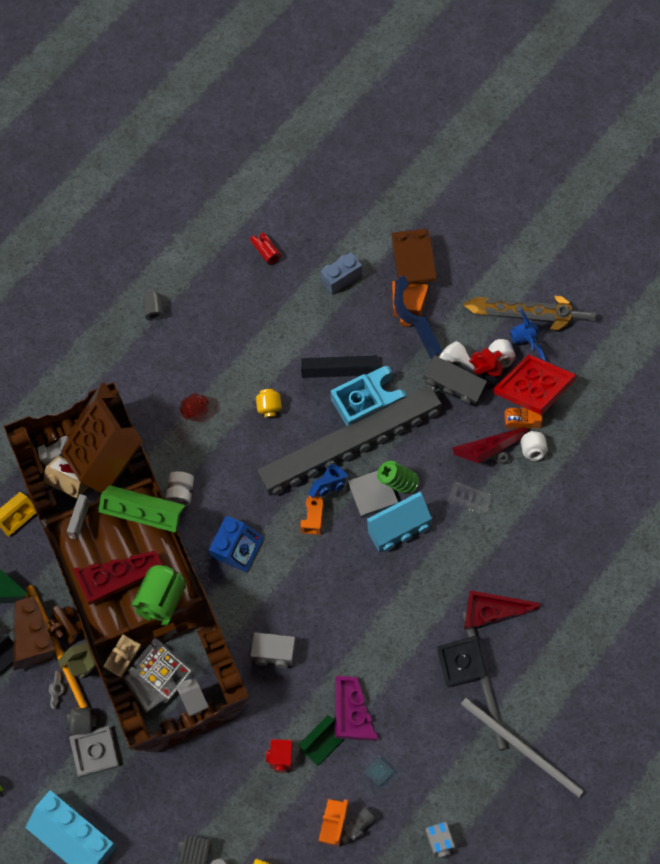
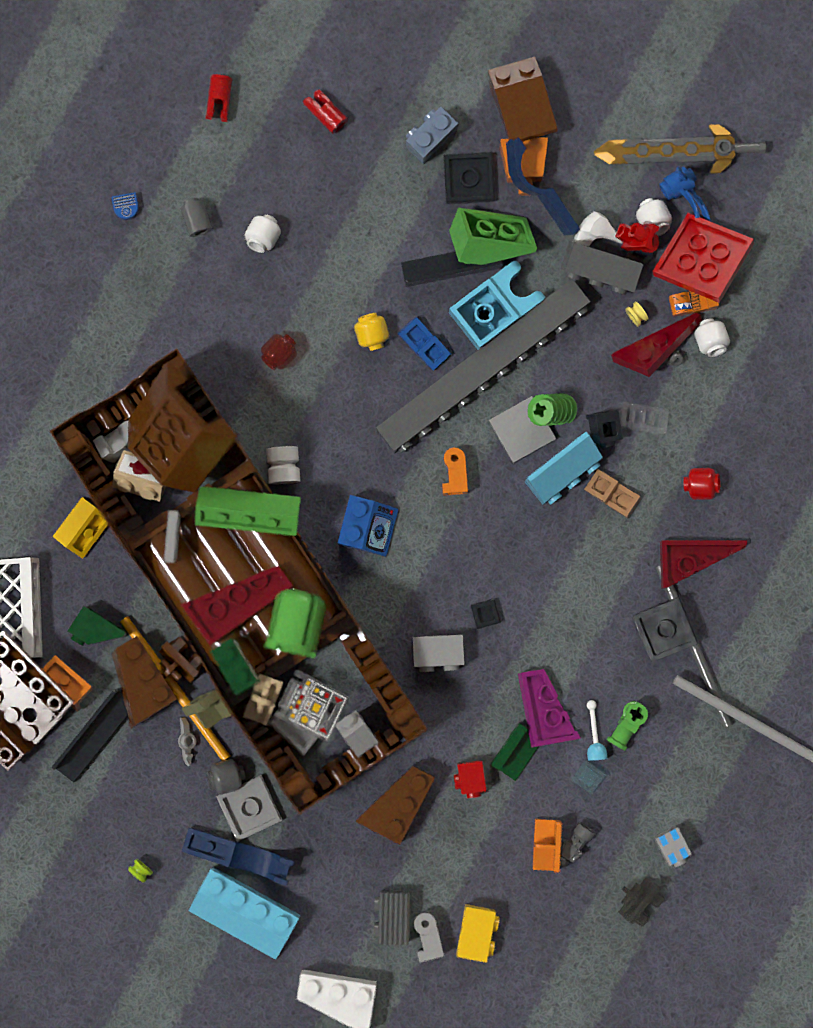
camera: 15 degrees left, 20 degrees up
(75, 787) = (237, 855): none -> dark blue piece
(103, 292) = (125, 206): none -> blue tile
(104, 621) = (235, 666): none -> dark green brick
(189, 226) = (219, 93): none -> red hinge
(200, 323) = (262, 233): none -> white head
(216, 766) = (398, 805): none -> reddish brown wedge
(307, 419) = (424, 343): none -> blue slope
(317, 628) = (485, 614): none -> black tile
(331, 481) = (468, 424): blue plate -> none
(364, 308) = (469, 178): none -> black tile
(371, 347) = (490, 236): none -> bright green slope
(389, 751) = (596, 750): none -> hinge
(418, 733) = (628, 726): none -> bright green connector
(437, 552) = (612, 493): none -> medium nougat slope
(440, 493) = (611, 423): none -> black brick
(477, 420) = (636, 313): none -> light yellow bush
(509, 552) = (702, 483): none -> red head

